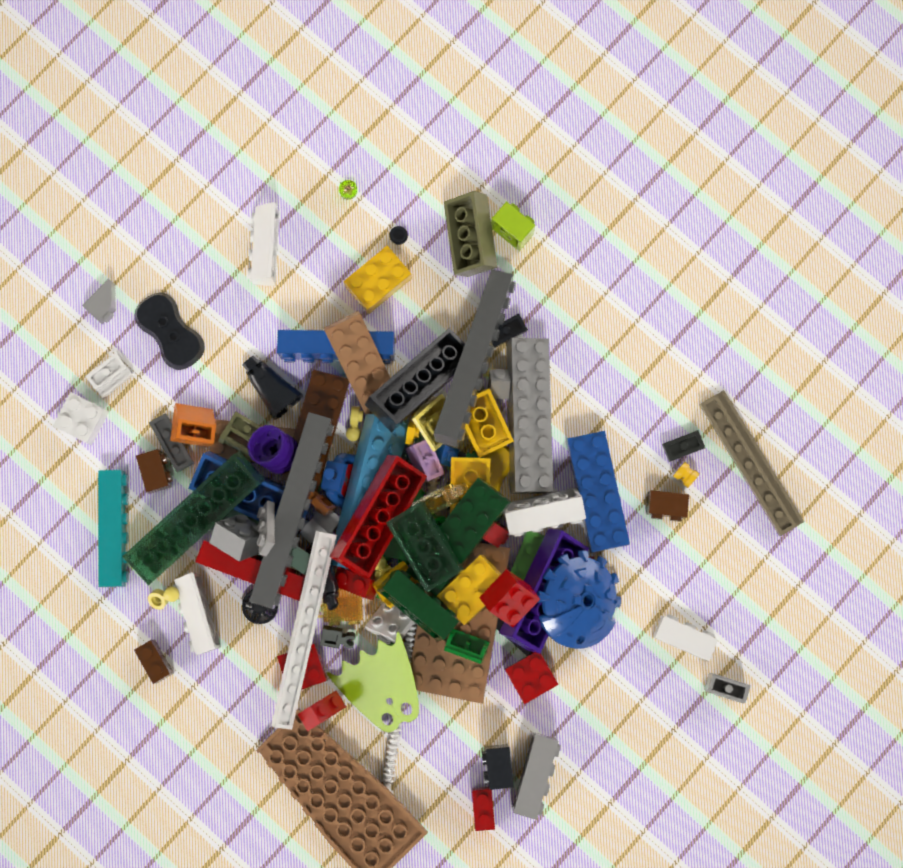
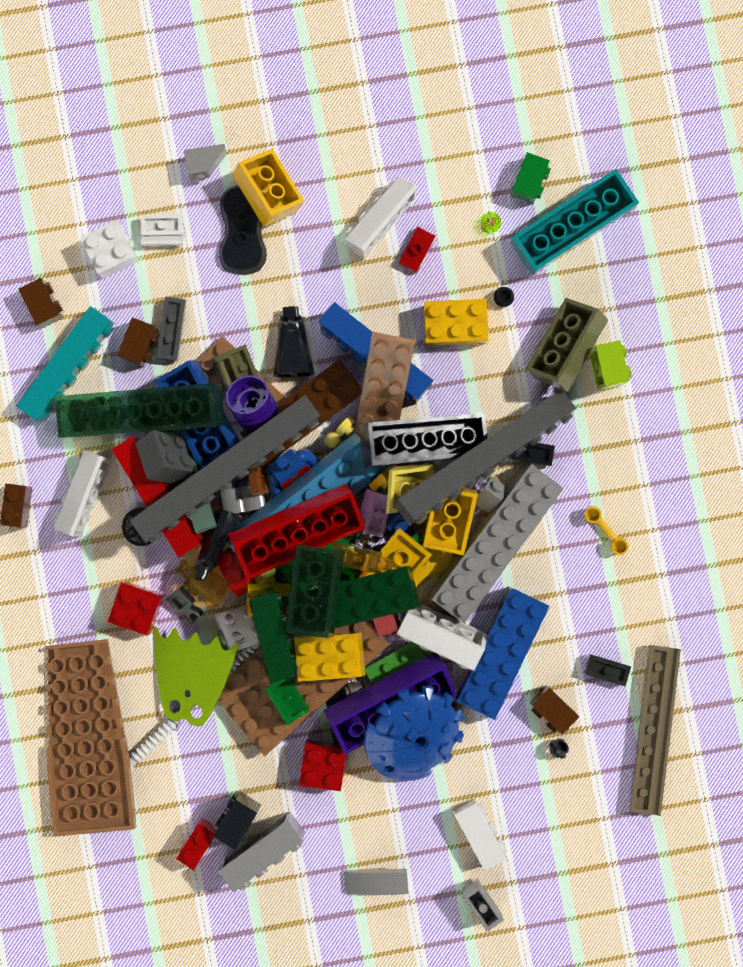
camera: 35 degrees right, 5 degrees up
(59, 497) = (41, 303): none -> reddish brown brick
(159, 599) = (61, 455): light yellow plate -> none
(165, 285) = (268, 187): none -> yellow brick
(193, 425) = (200, 328): orange slope -> none
(266, 528) = (192, 468): light grey plate -> none
(303, 630) = (159, 579): white plate -> none
(309, 249) = (417, 249): none -> red plate
(321, 710) = (124, 657): red brick -> none
(352, 137) = (530, 177): none -> green brick
(408, 144) = (574, 222): none -> teal brick
(509, 598) = (353, 690): red brick -> none
(621, 349) = (619, 544): none -> yellow bar
(637, 732) = (376, 881): none -> light grey slope
(686, 474) = (590, 696): yellow wheel -> none
(693, 530) = (559, 748): none -> black plate

